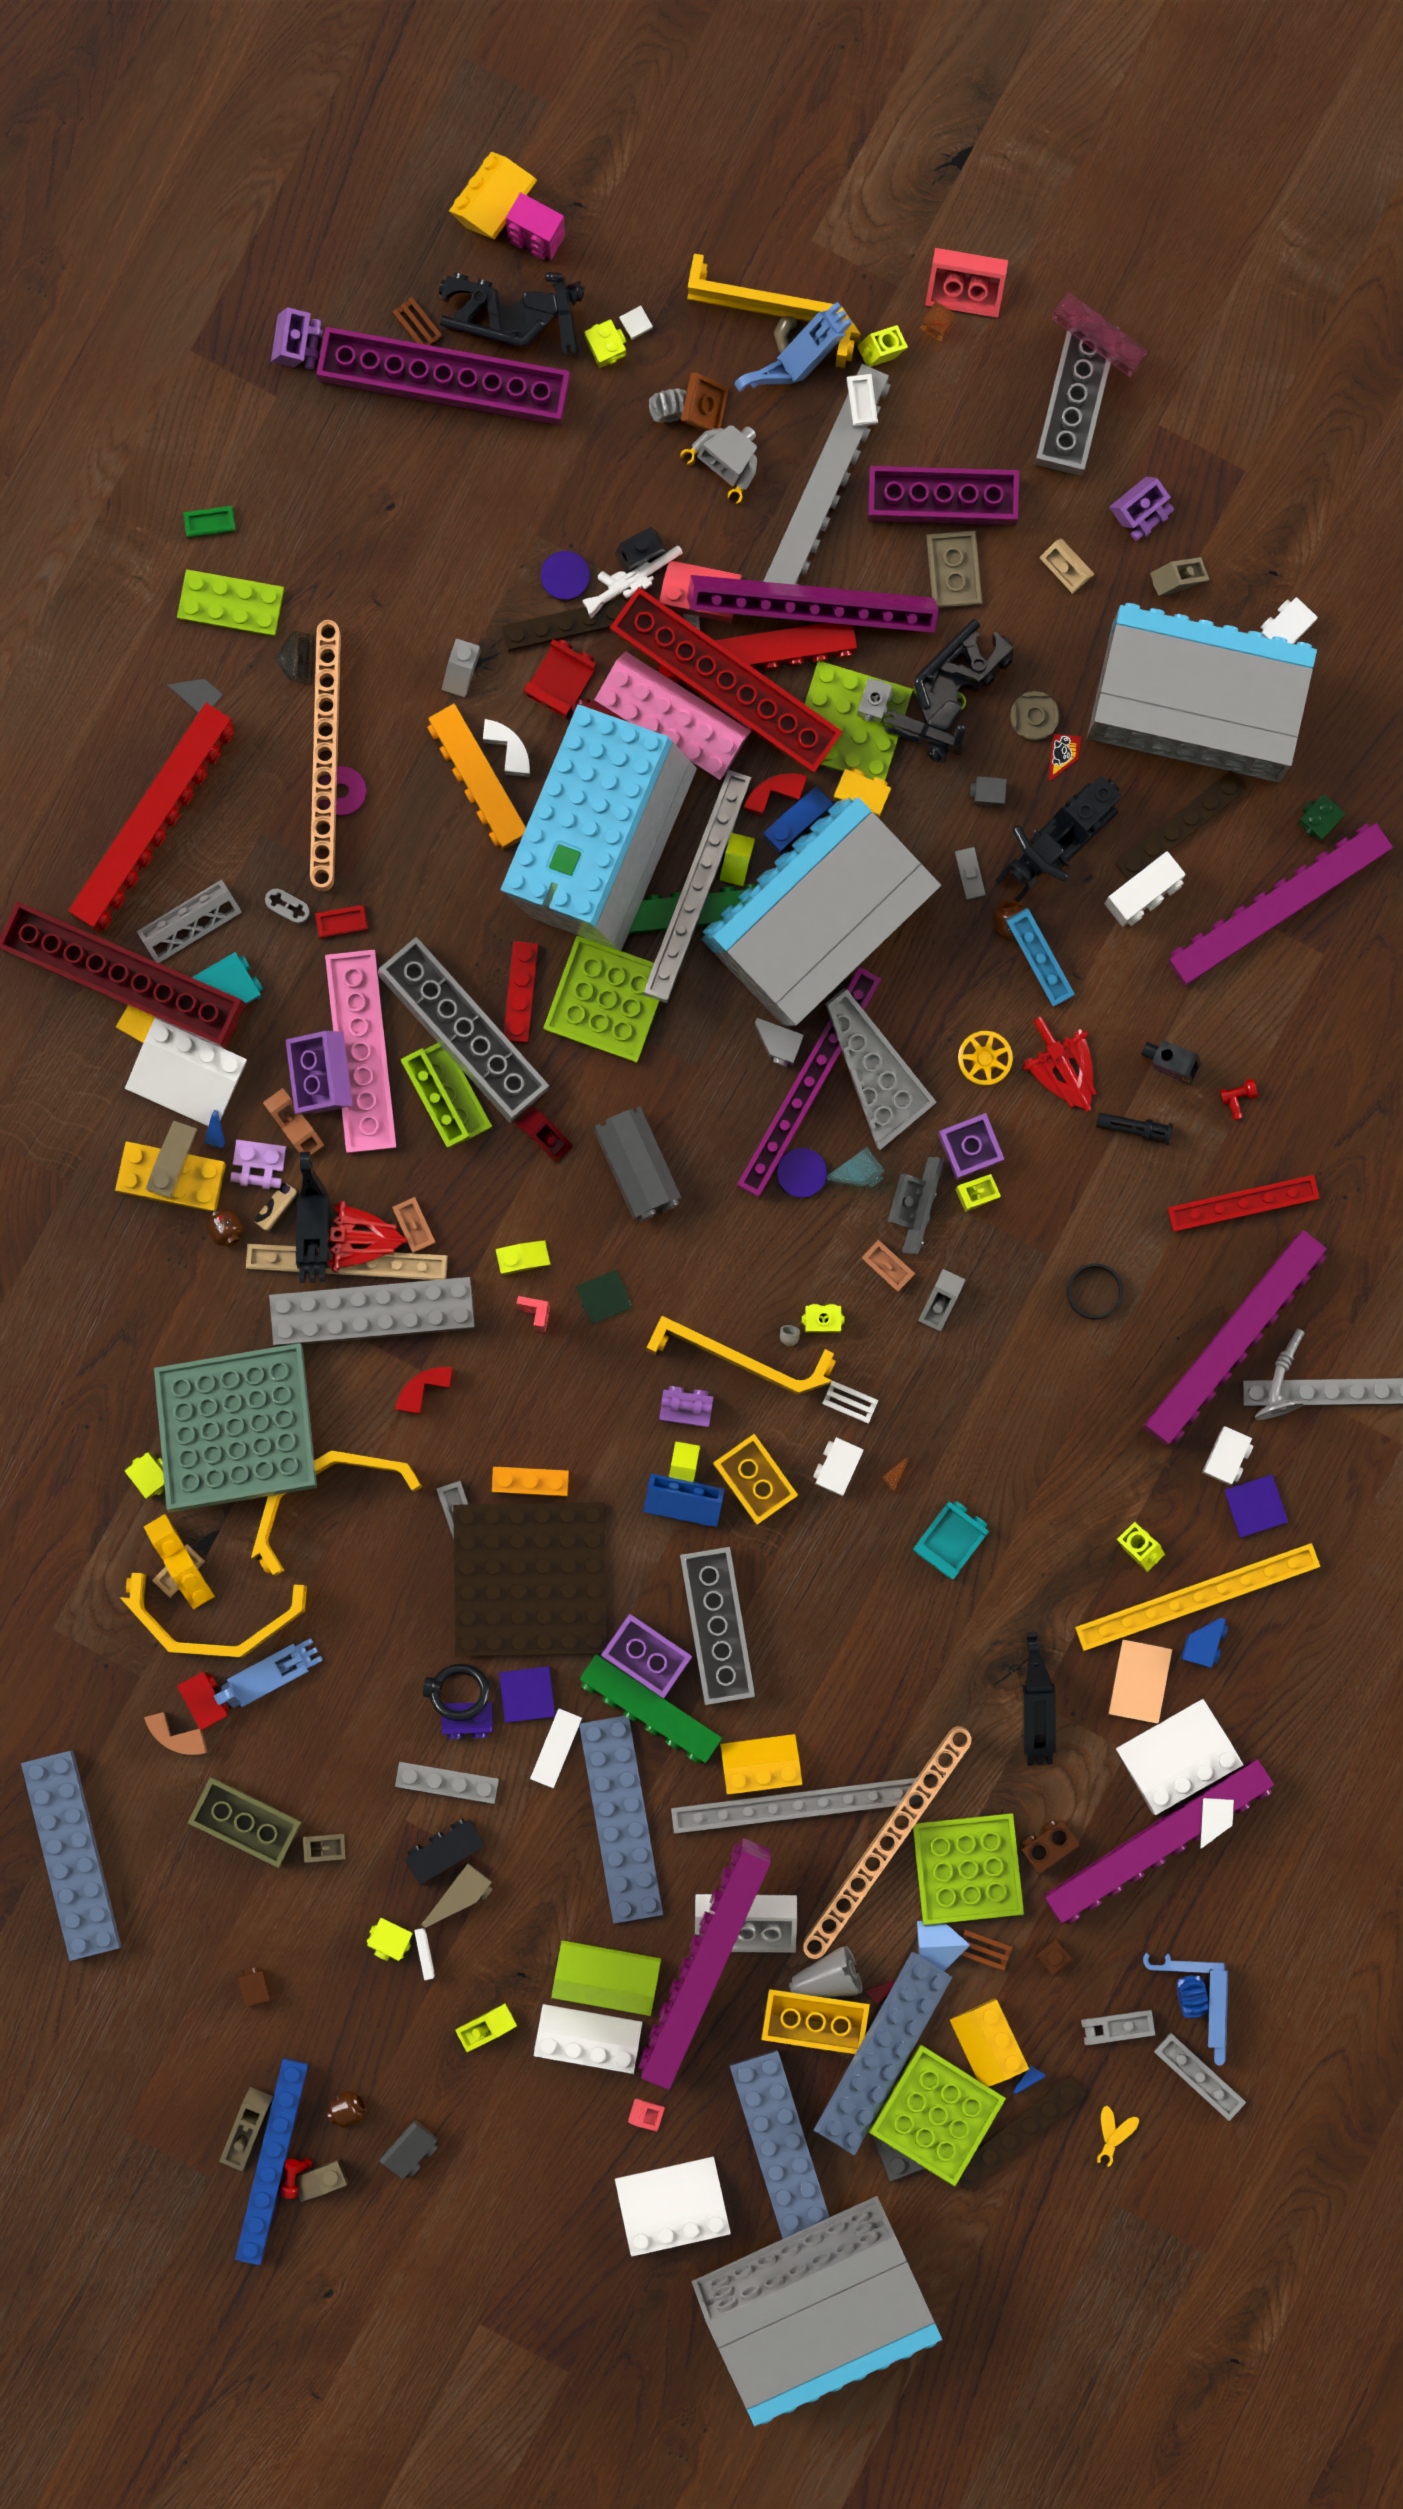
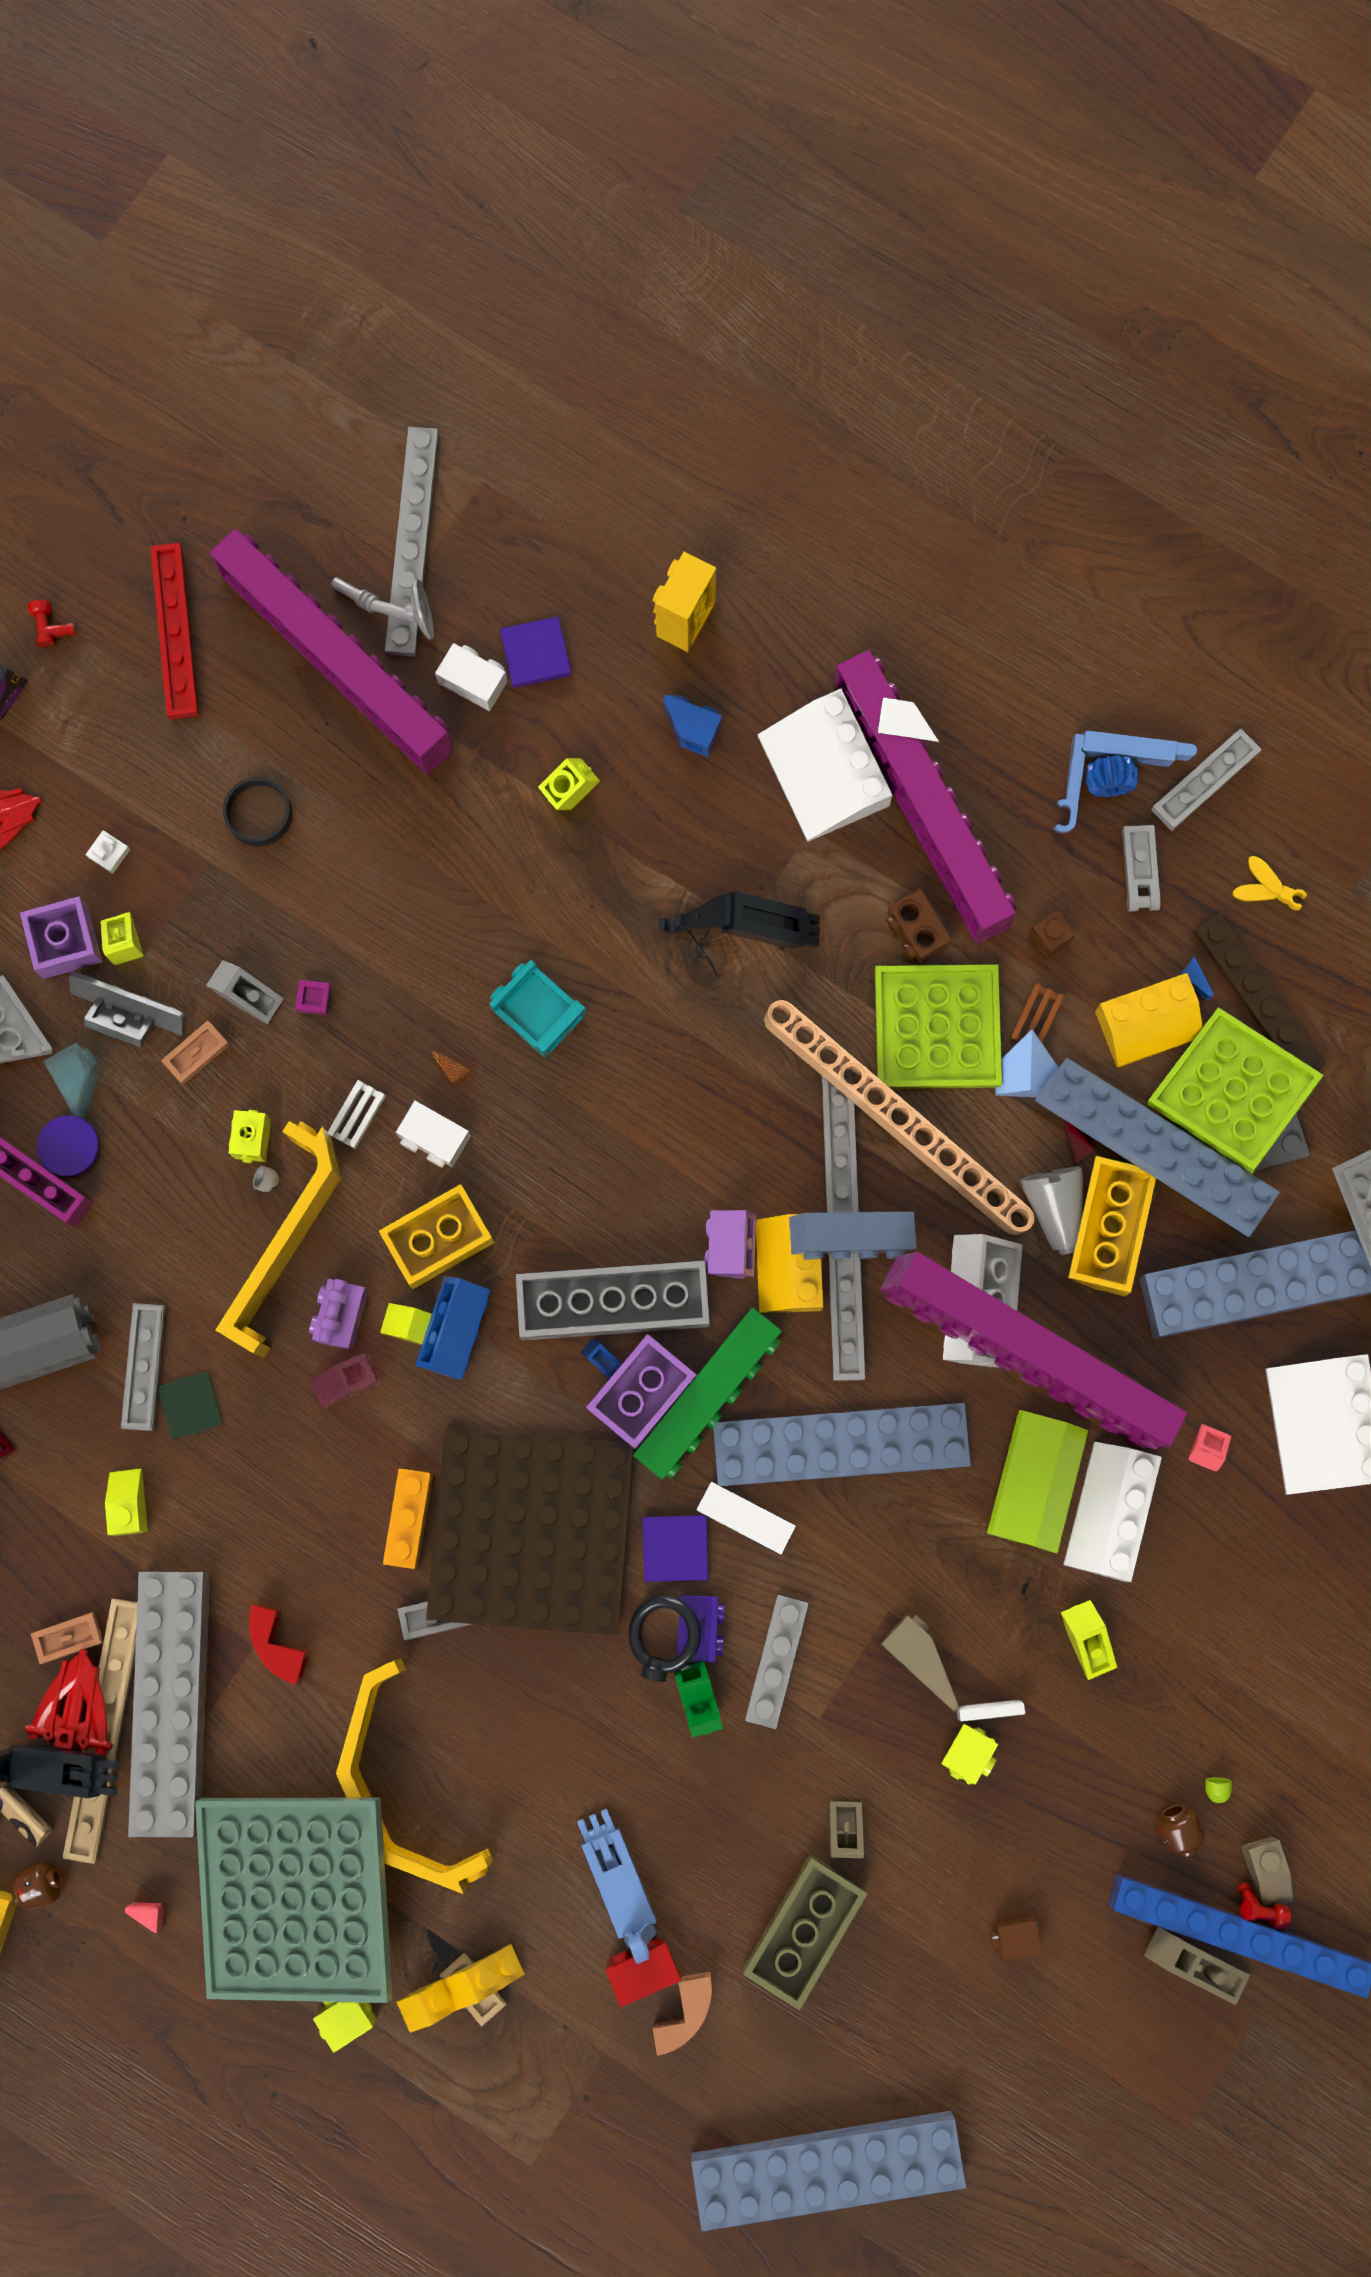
camera: 75 degrees left, 5 degrees down
(136, 1588) = (506, 2052): yellow panel -> none
(212, 1315) = (148, 1914): none -> coral slope
(380, 2137) = (1218, 1789): none -> lime hinge
(409, 2149) = (1237, 1754): dark grey slope -> none
(412, 1723) = (698, 1699): none -> green brick
(444, 1850) = (862, 1673): black brick -> none
(539, 1308) = (184, 1491): coral fence -> none
(630, 1256) = (143, 1367): none -> light grey tile
(633, 1418) = (345, 1380): none -> clear pink slope
(671, 1621) = (601, 1358): none -> blue piece
(771, 1716) = (731, 1243): none -> medium lavender brick
(788, 1813) = (852, 1234): none -> sand blue brick
(942, 1355) = (313, 997): none -> magenta plate
(1049, 1172) = (107, 852): none -> white tile
(1104, 1121) = (72, 729): black pin -> none
(1140, 1681) = (730, 804): light nougat tile -> none
(1197, 1597) = (636, 729): yellow plate -> none
(1303, 1628) = (685, 601): none -> yellow brick

